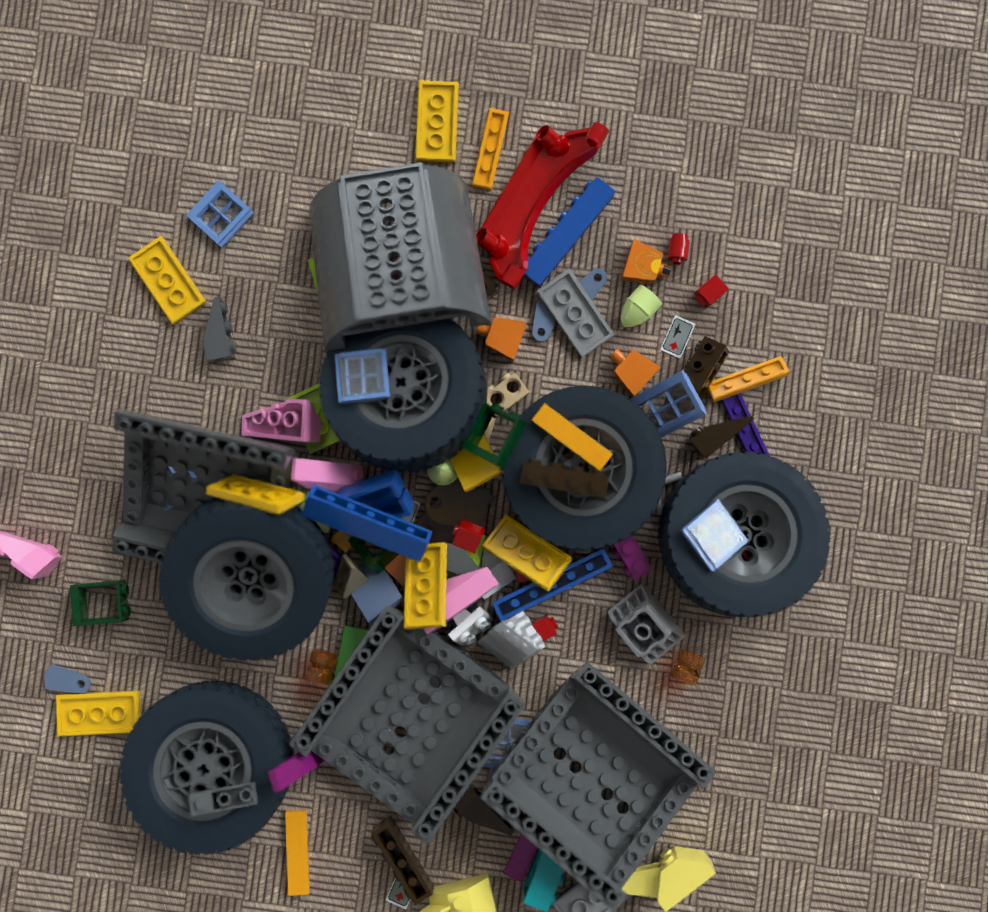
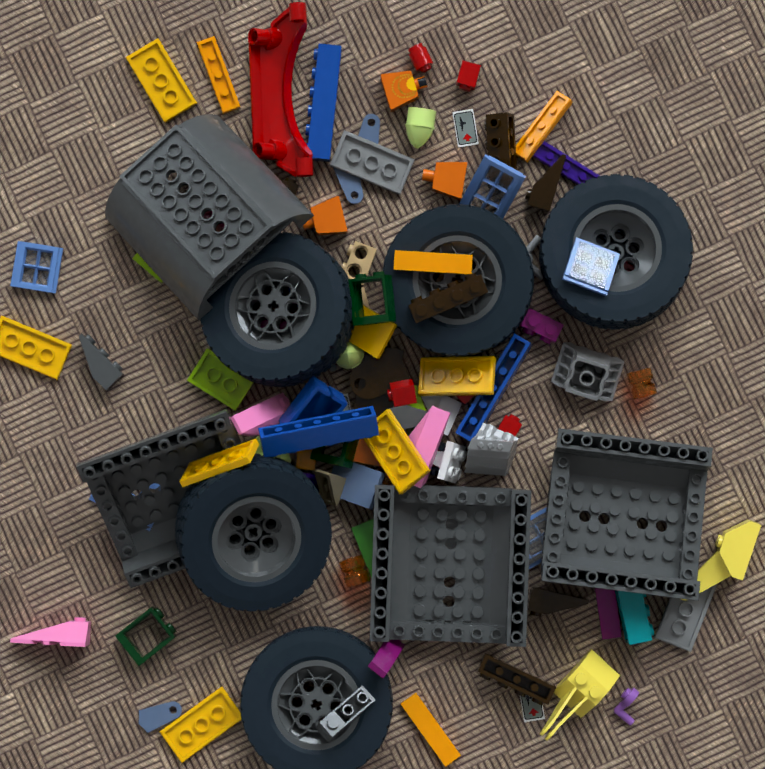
camera: 30 degrees left, 0 degrees up
(286, 421) = (201, 395): bright pink wedge -> none
(362, 376) = (241, 320): clear piece -> none

